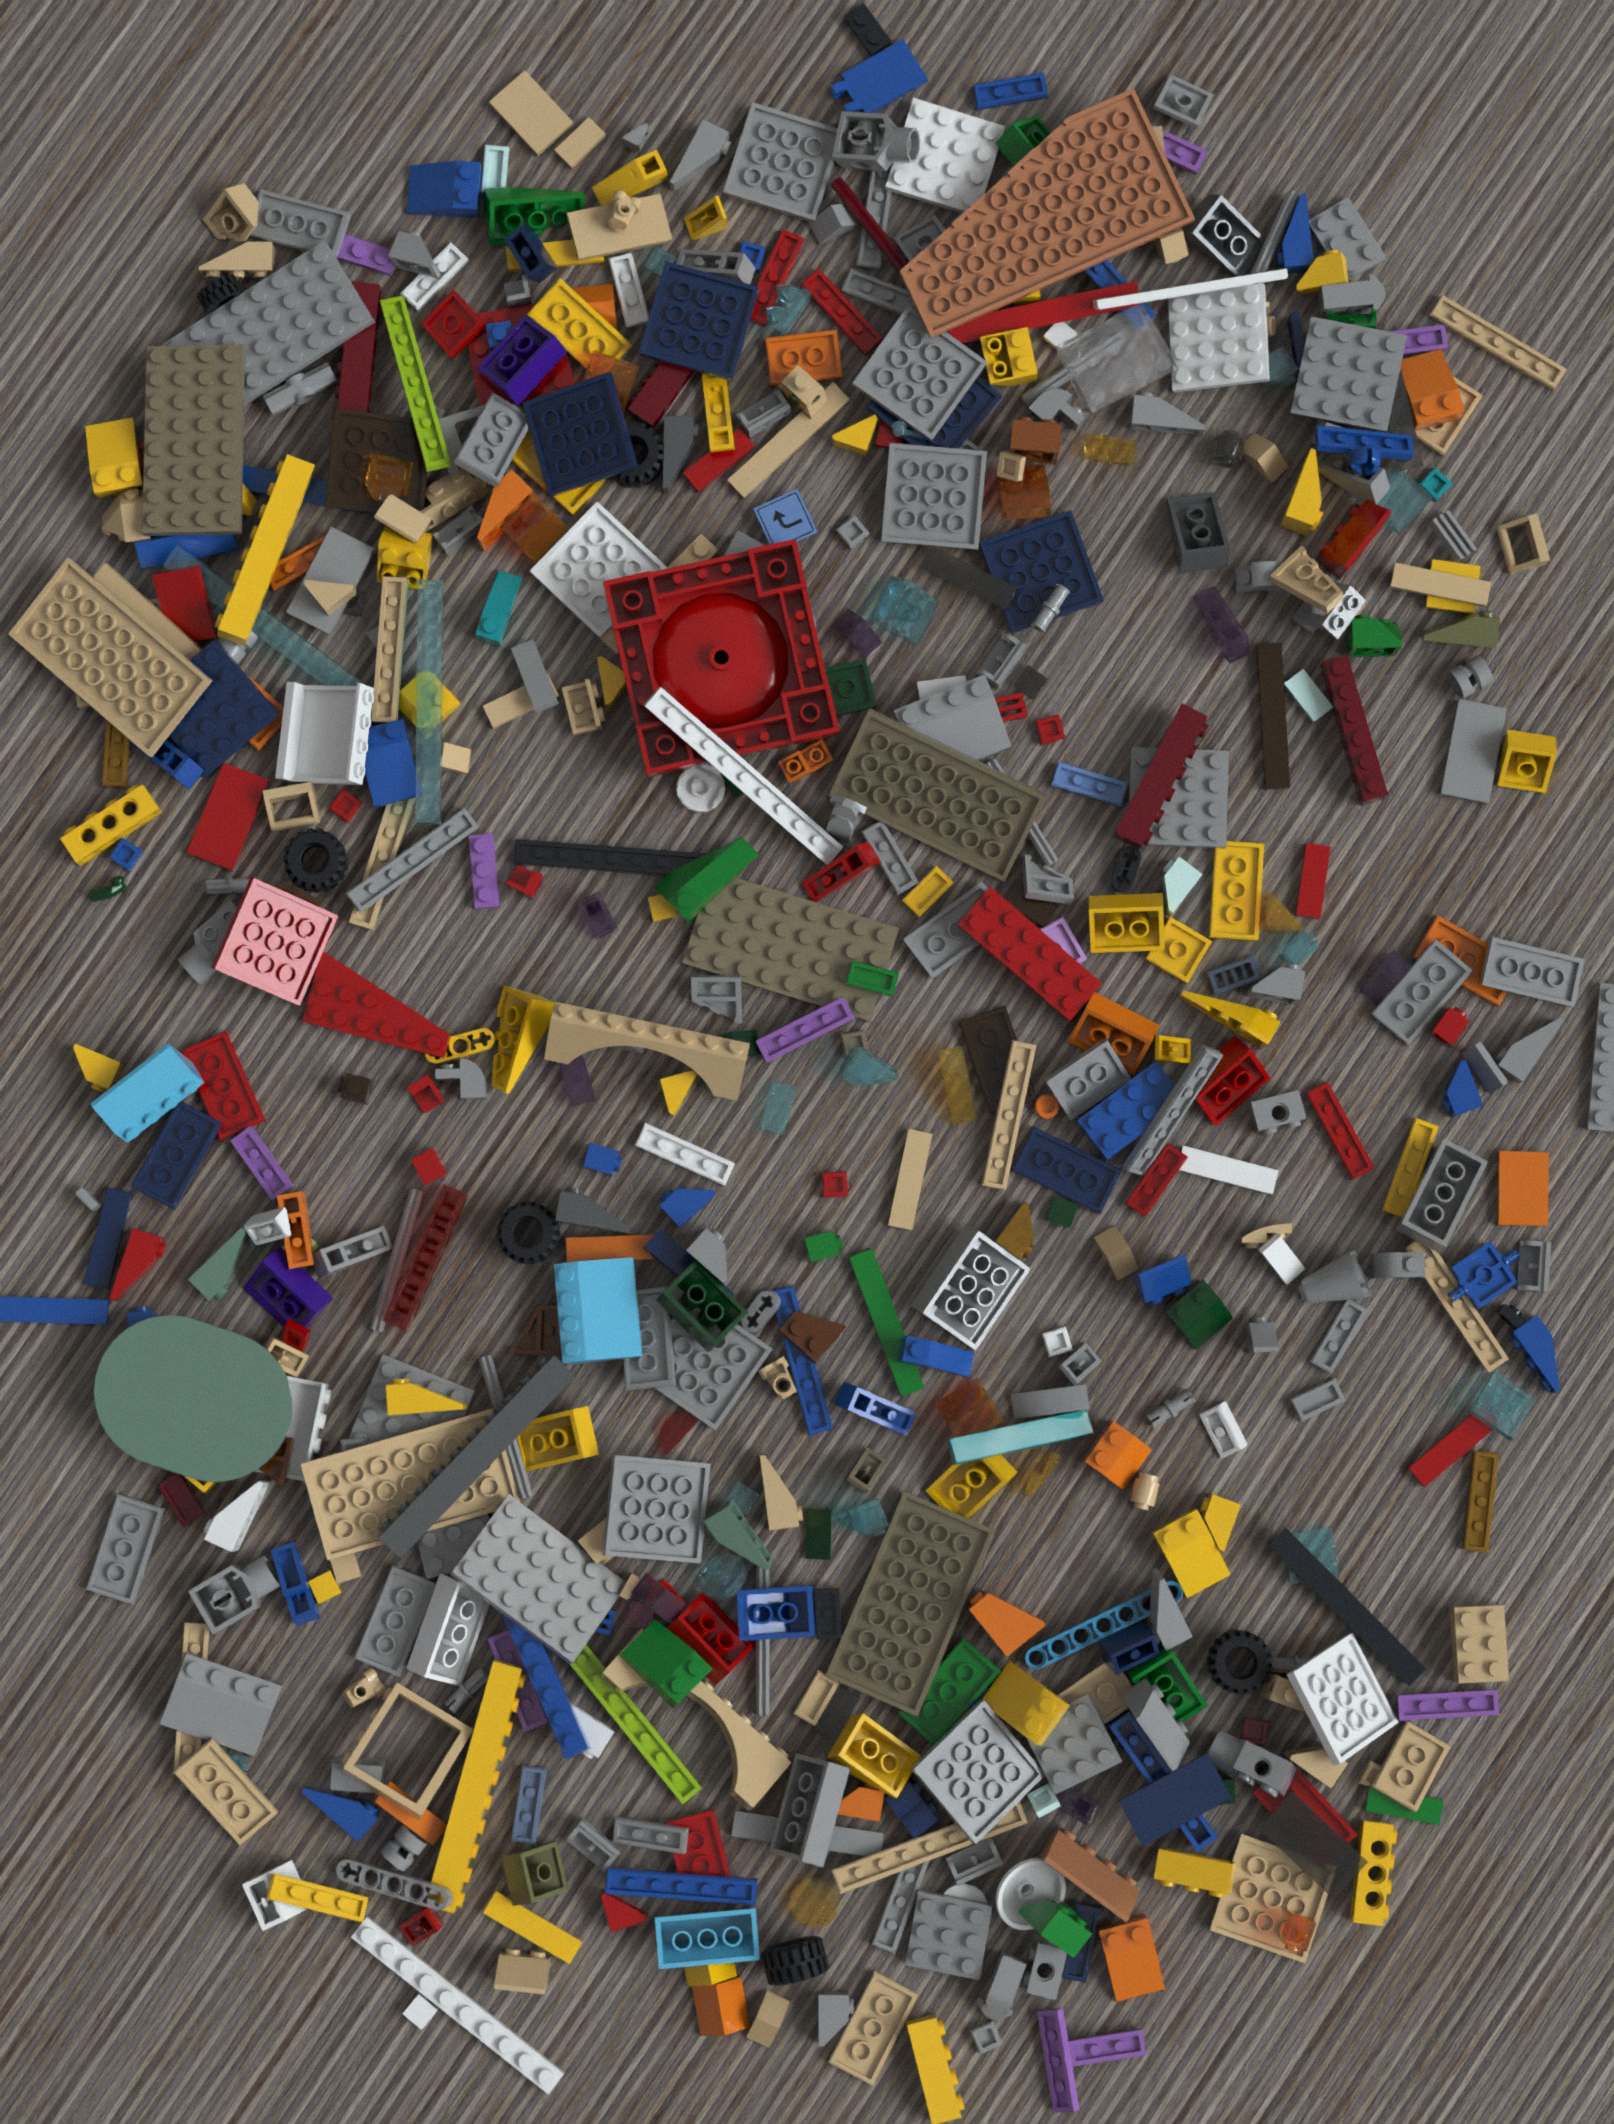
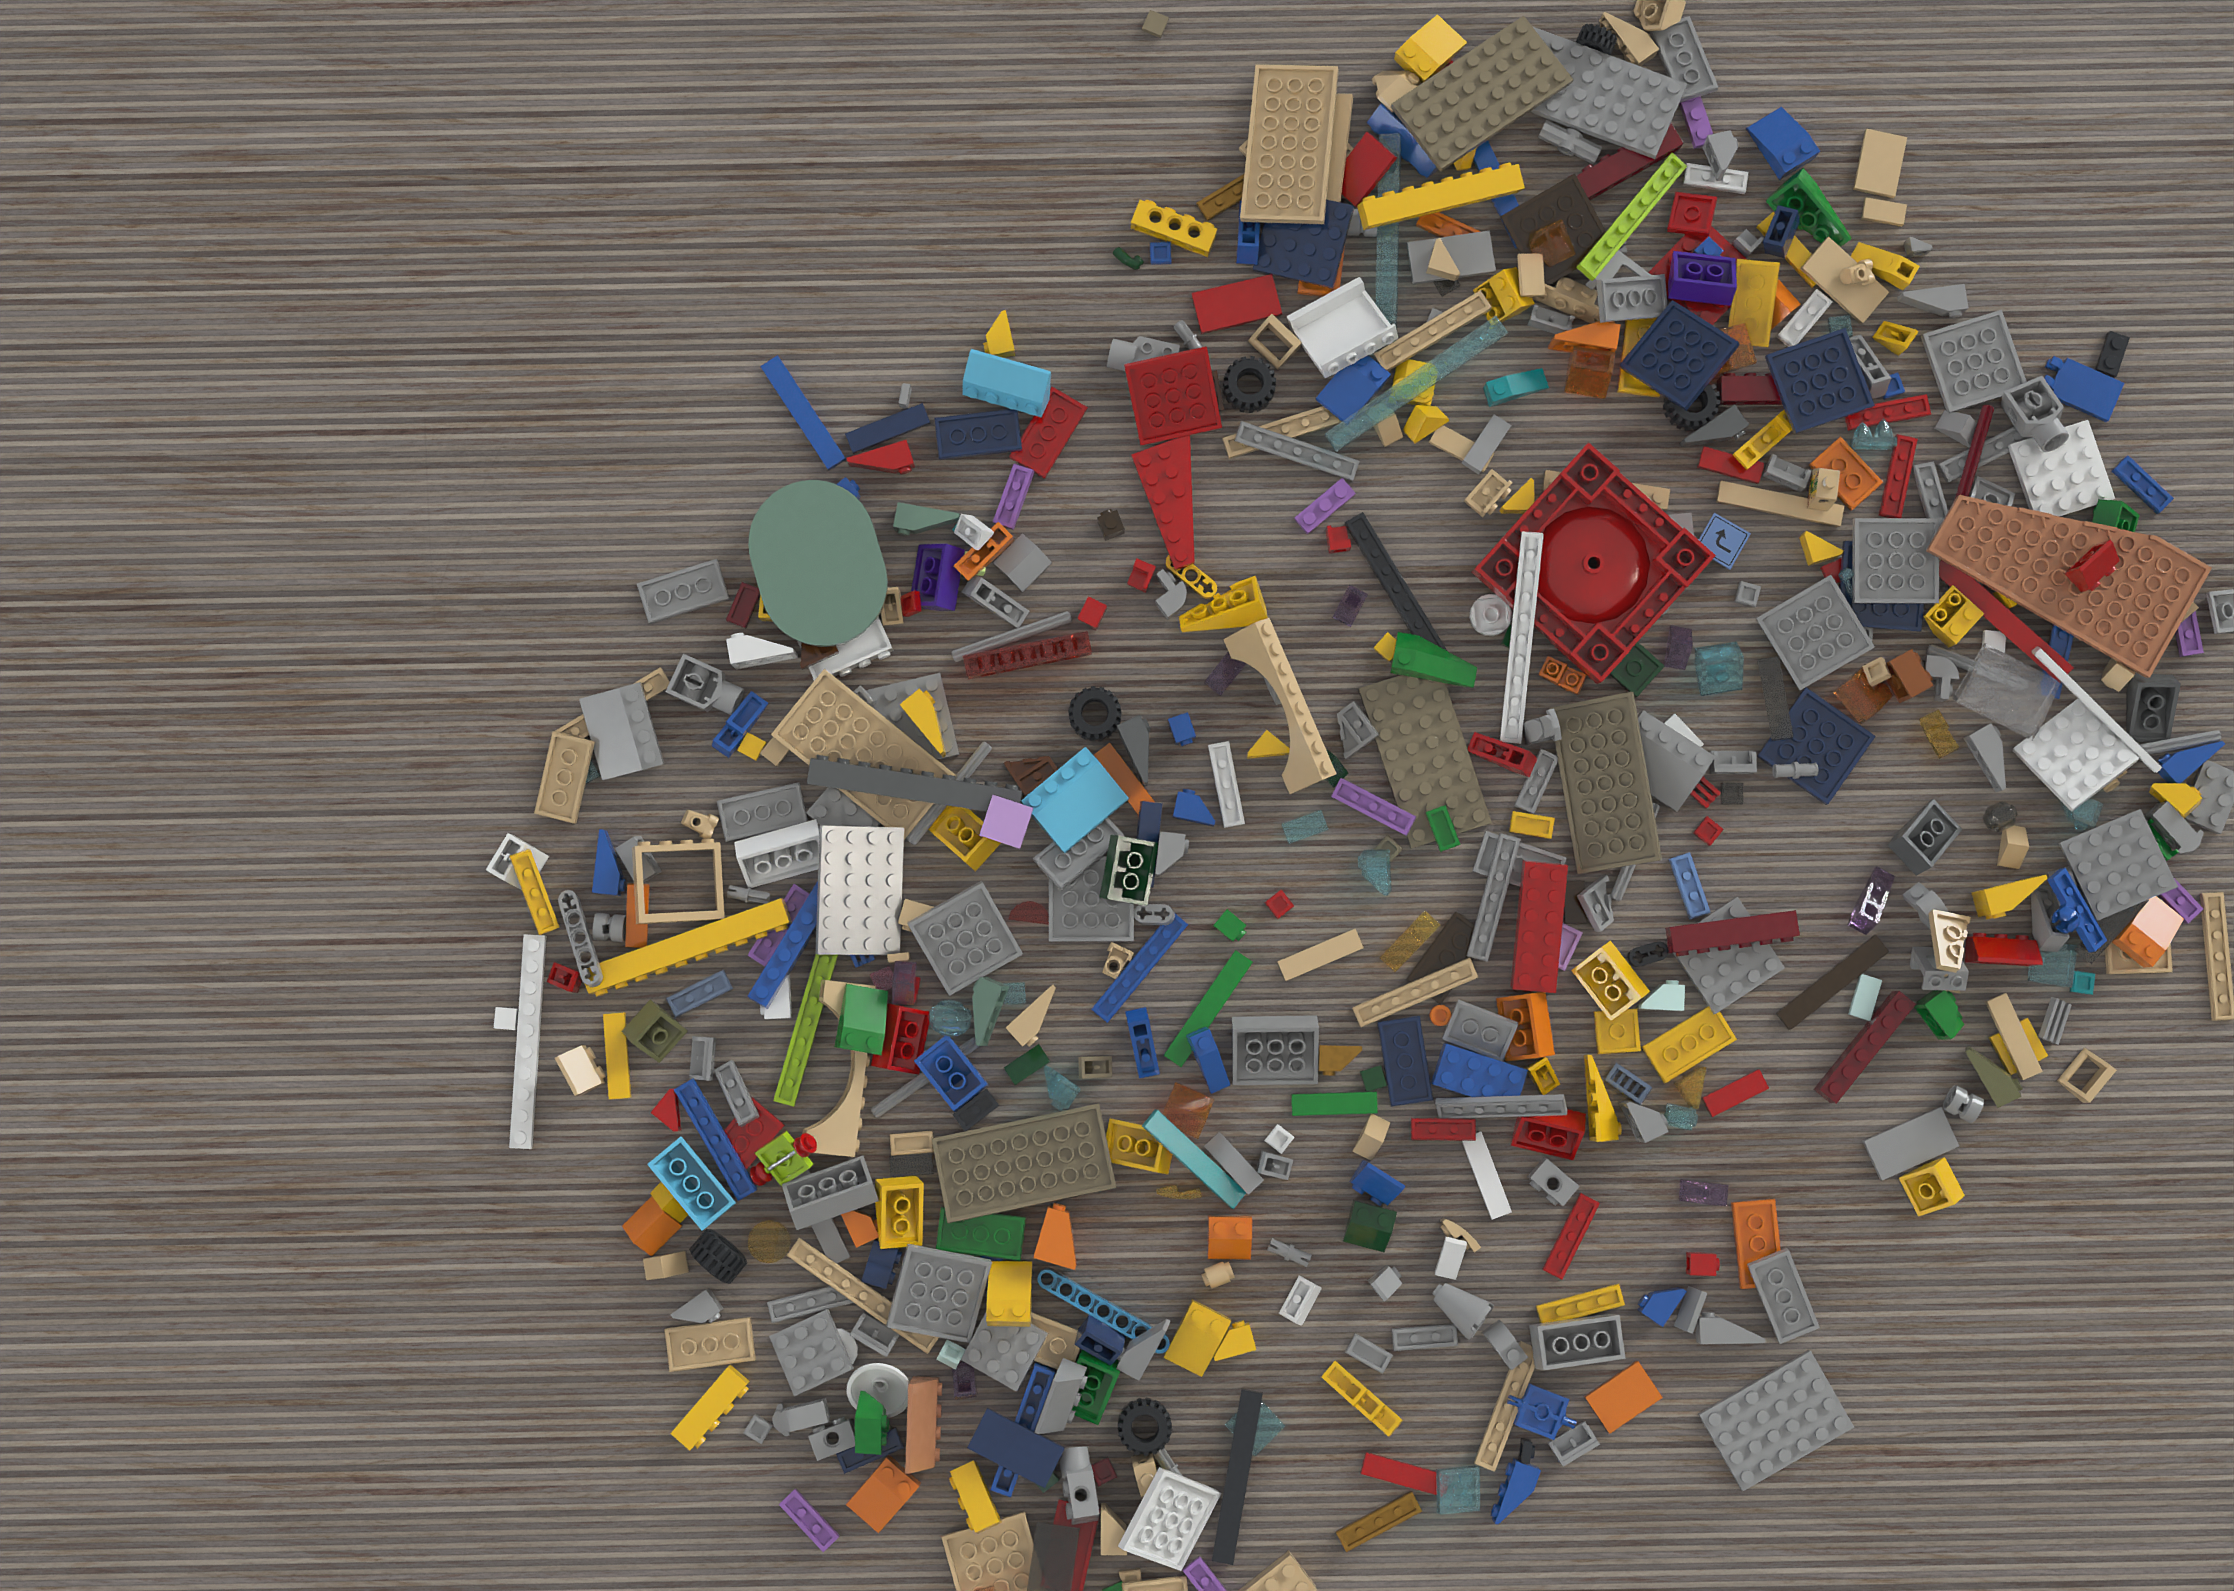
camera: 55 degrees right, 0 degrees up
(332, 1199) = (1022, 562): none -> light grey slope
(345, 805) = (1302, 379): red tile -> none
(470, 719) = (1423, 422): none -> yellow slope
(494, 167) = (1823, 165): light aqua tile -> none
(573, 1391) = (1006, 821): none -> lavender tile
(587, 555) = (1592, 418): white plate -> none
(745, 1832) = (783, 1158): none -> lime plate
(810, 1334) = (1162, 960): reddish brown wing -> none
(970, 977) = (1493, 897): none -> light grey tile
(1055, 196) = (2093, 566): none -> red slope
(1058, 2060) = (776, 1491): medium lavender plate -> none
(1060, 1266) = (1334, 1103): none -> green tile
(1296, 338) = (2116, 809): dark blue tile -> none
(1355, 1436) = (1362, 1398): none -> yellow slope
(1421, 992) = (1712, 1226): light grey tile -> none

